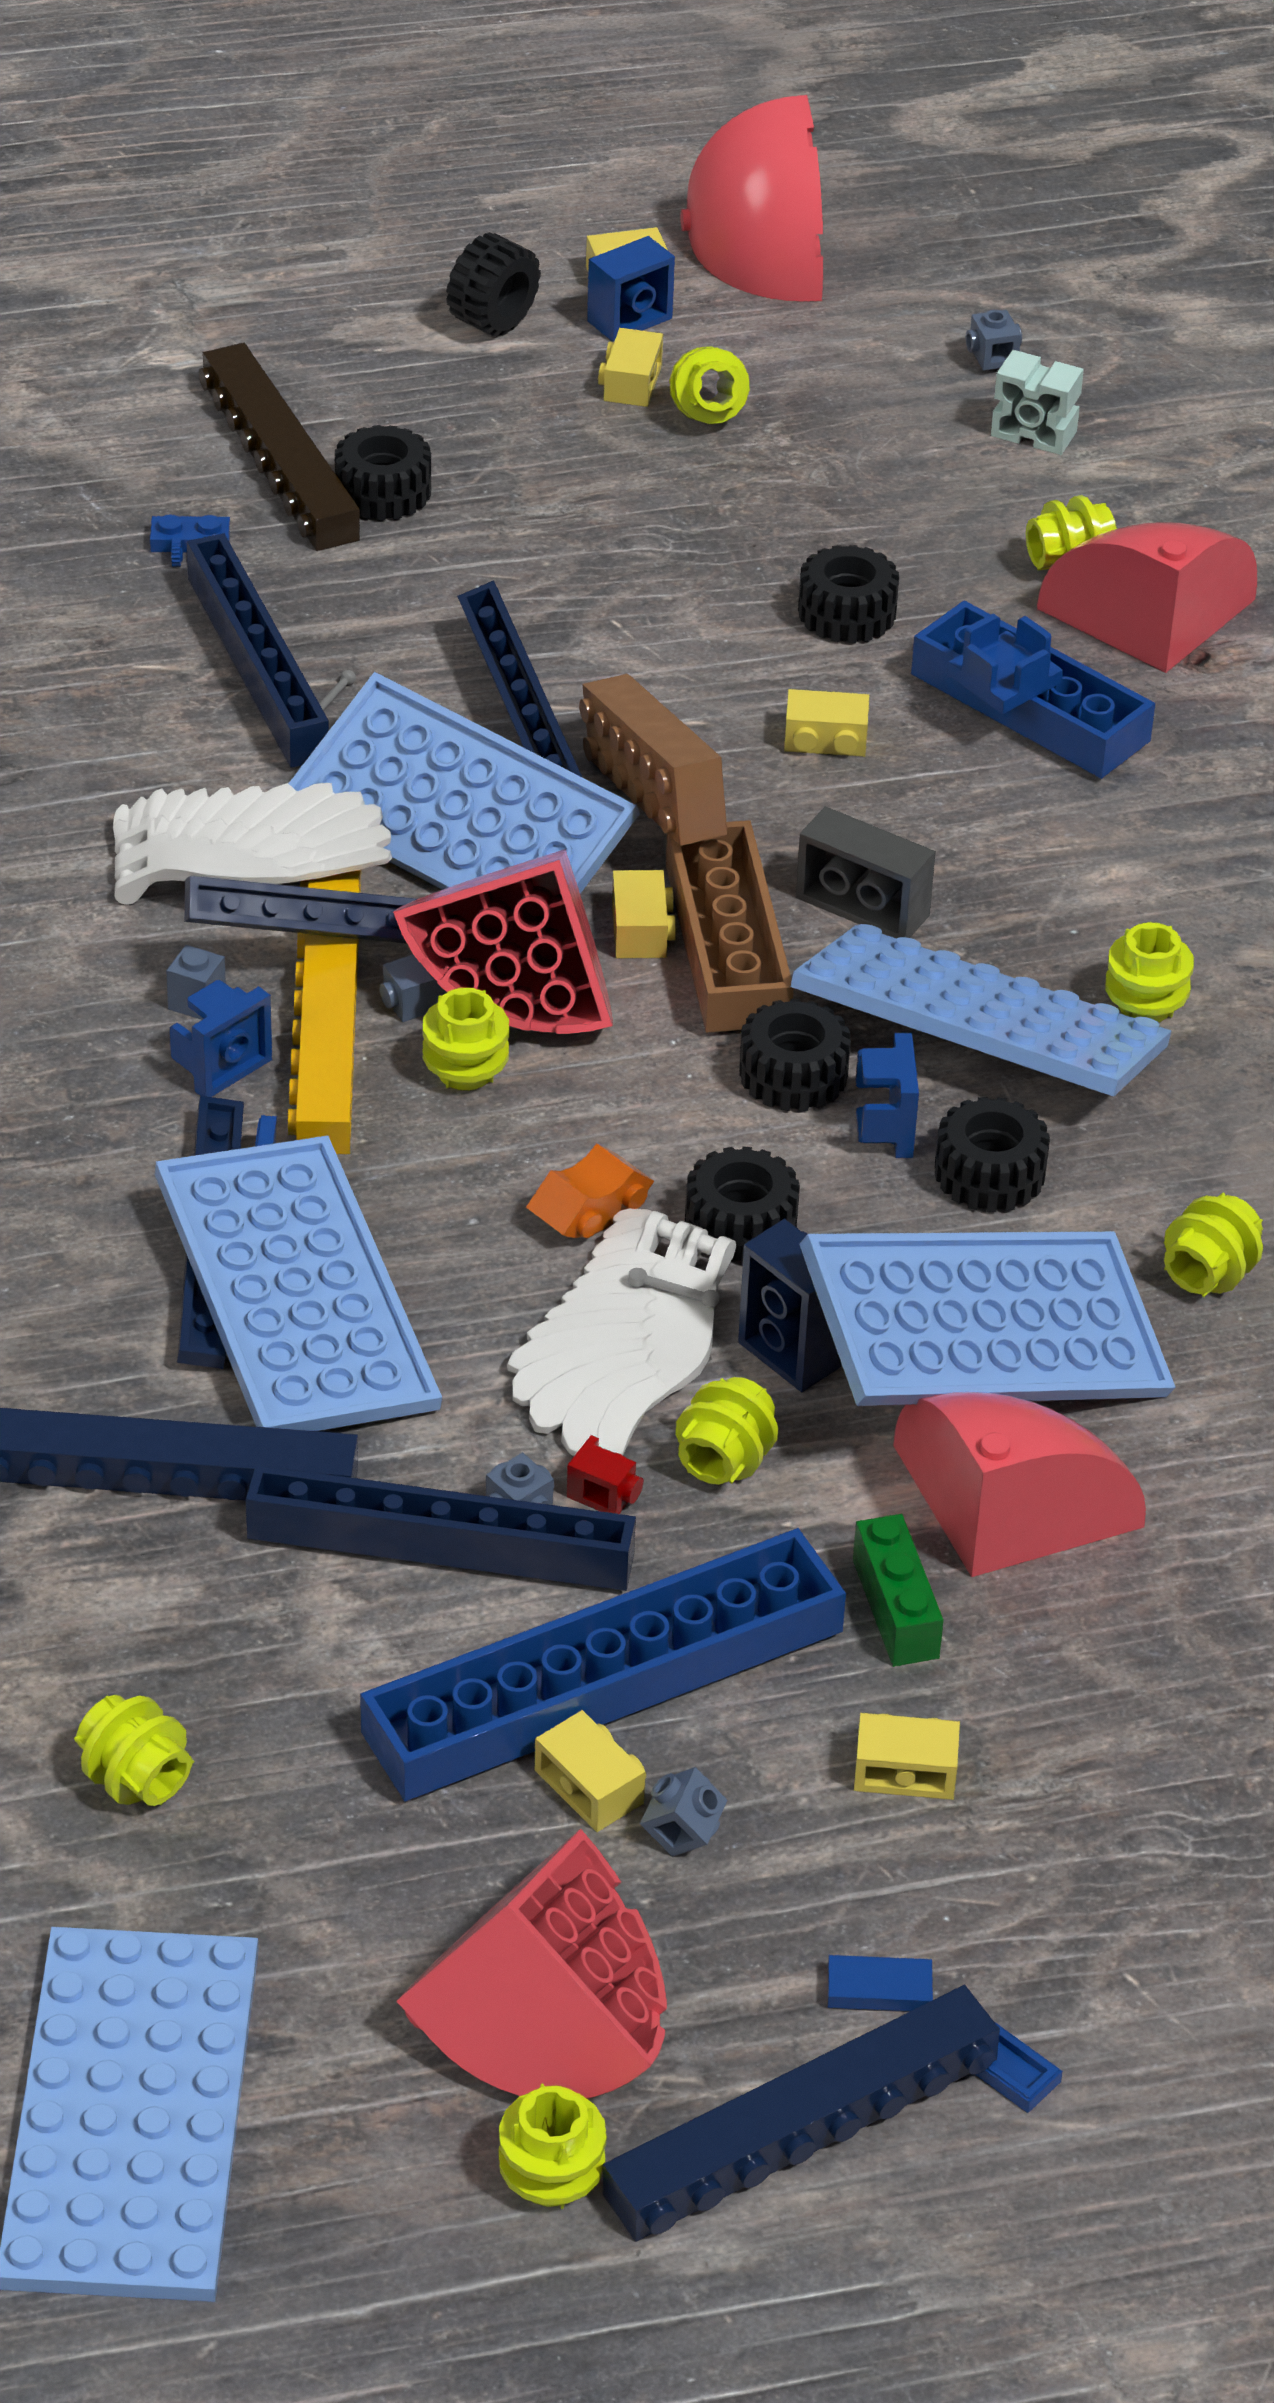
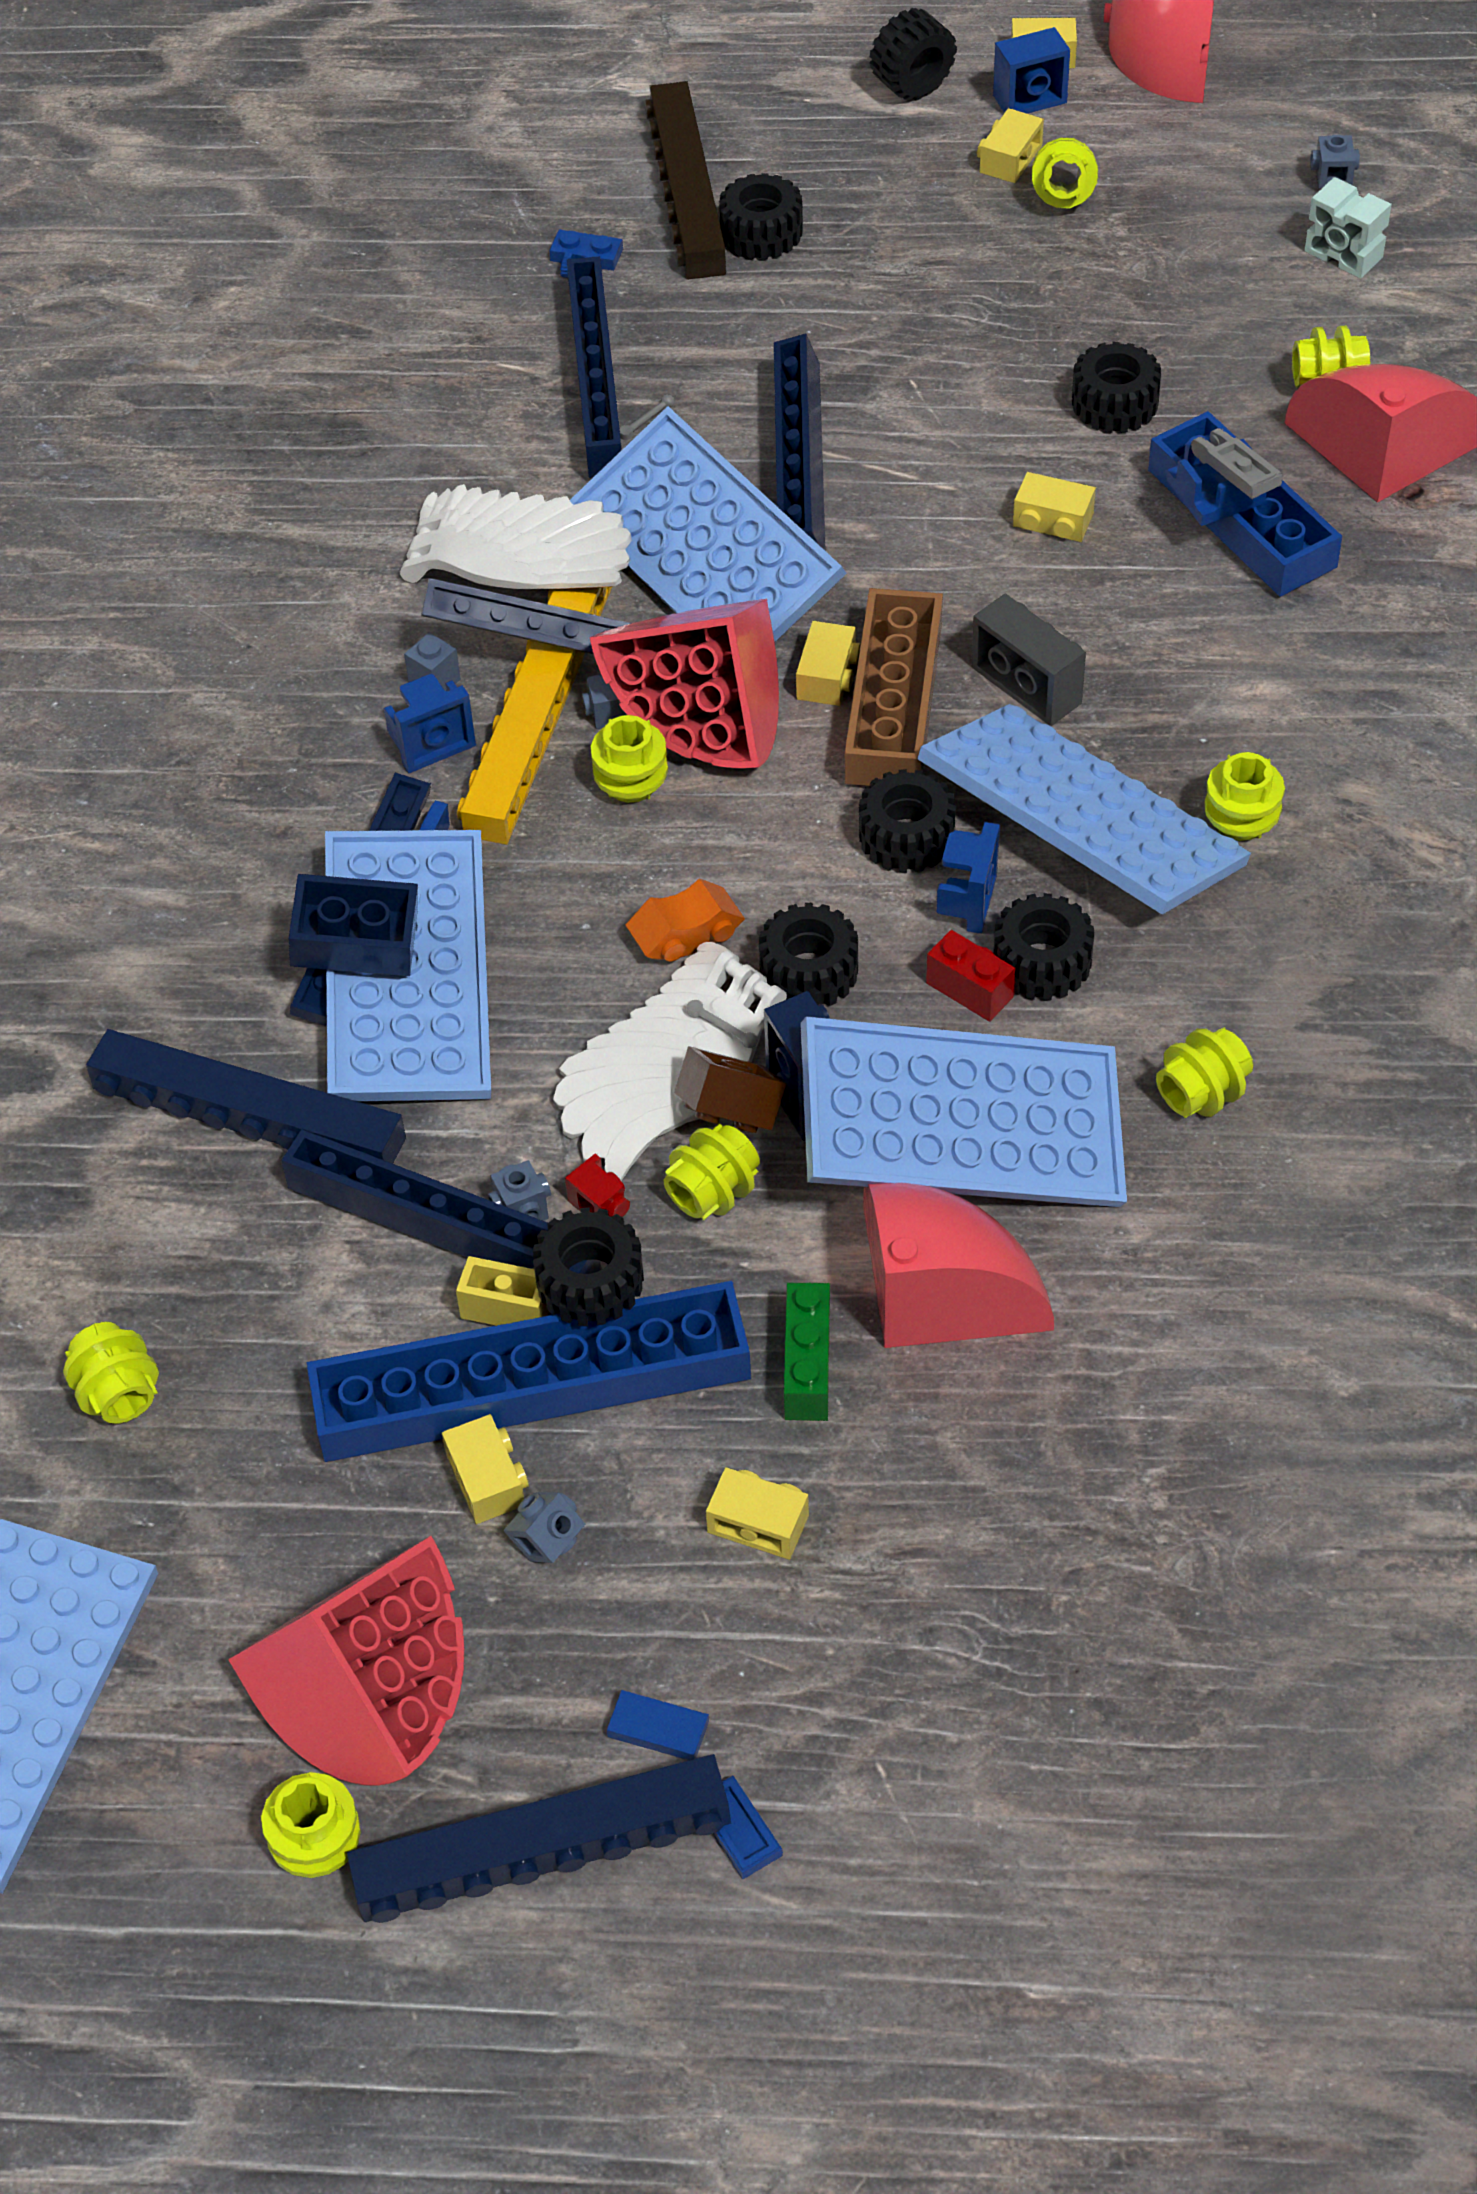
camera: 20 degrees right, 10 degrees up
(237, 1246) = (353, 925): none -> dark blue brick
(543, 1589) = (498, 1293): none -> light yellow brick
(641, 1507) = (588, 1238): none -> black tyre
(654, 759) = (874, 525): medium nougat brick -> none
(718, 1343) = (729, 1089): none -> reddish brown brick
(923, 1194) = (970, 975): none -> red brick
(1031, 638) = (1237, 463): none -> light grey hinge

